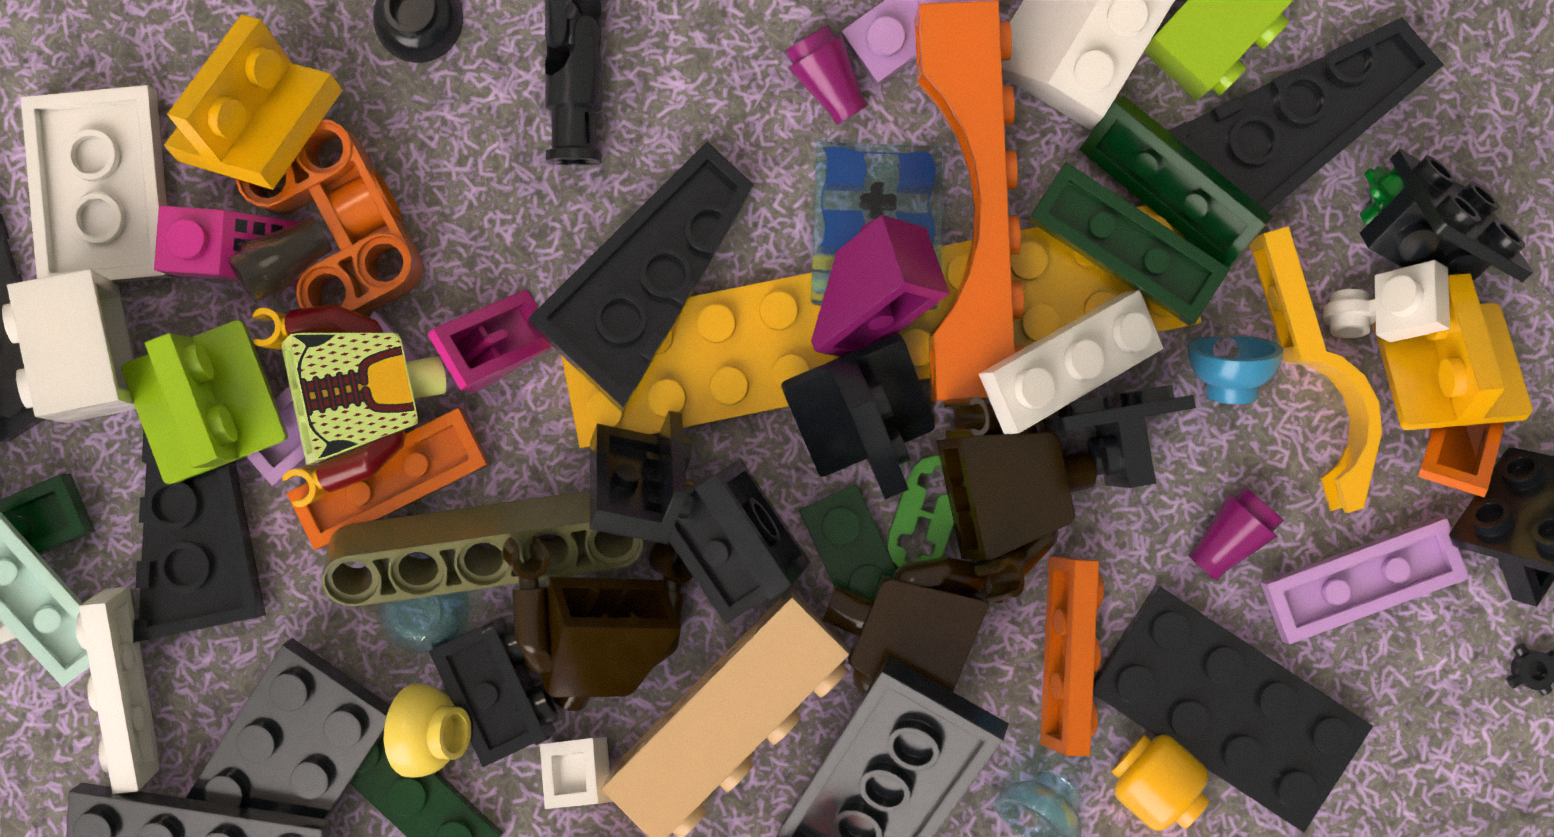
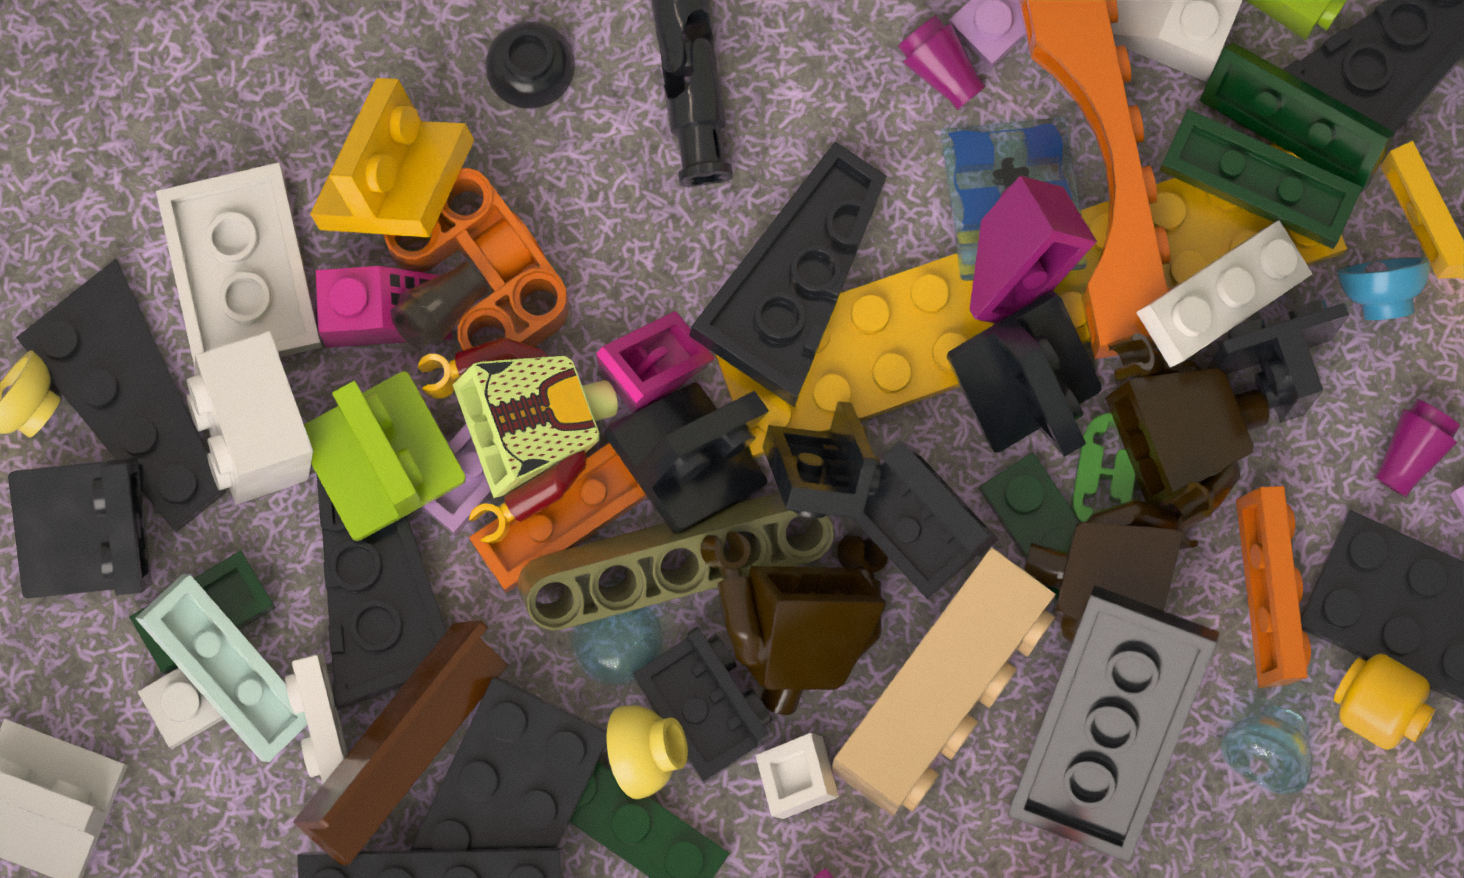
camera: 10 degrees left, 10 degrees down
(181, 699) = (401, 742): none -> reddish brown panel
(513, 442) = (691, 453): none -> black bracket

